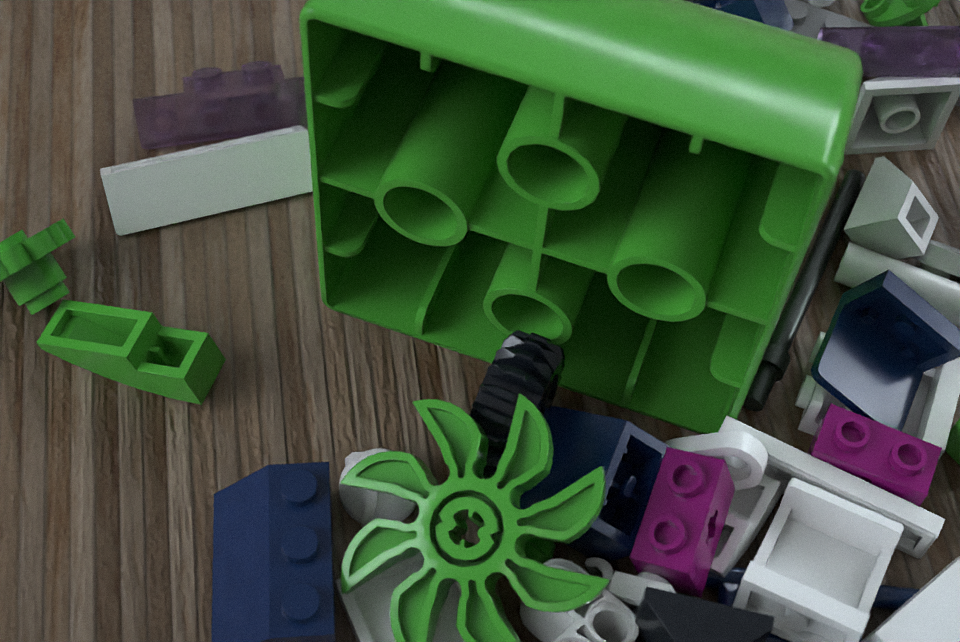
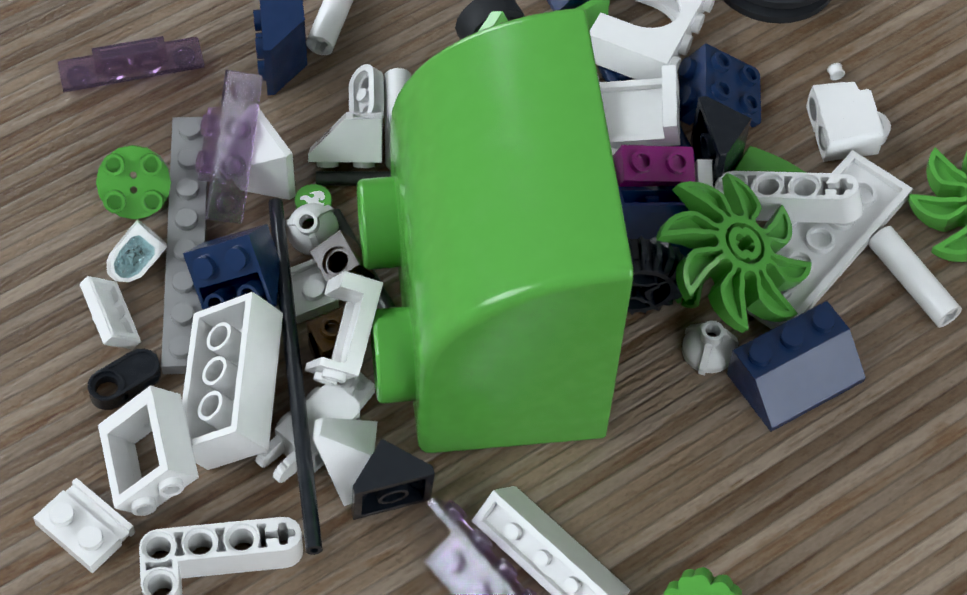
camera: 115 degrees left, 0 degrees up
(134, 349) = (715, 518): bright green slope -> none

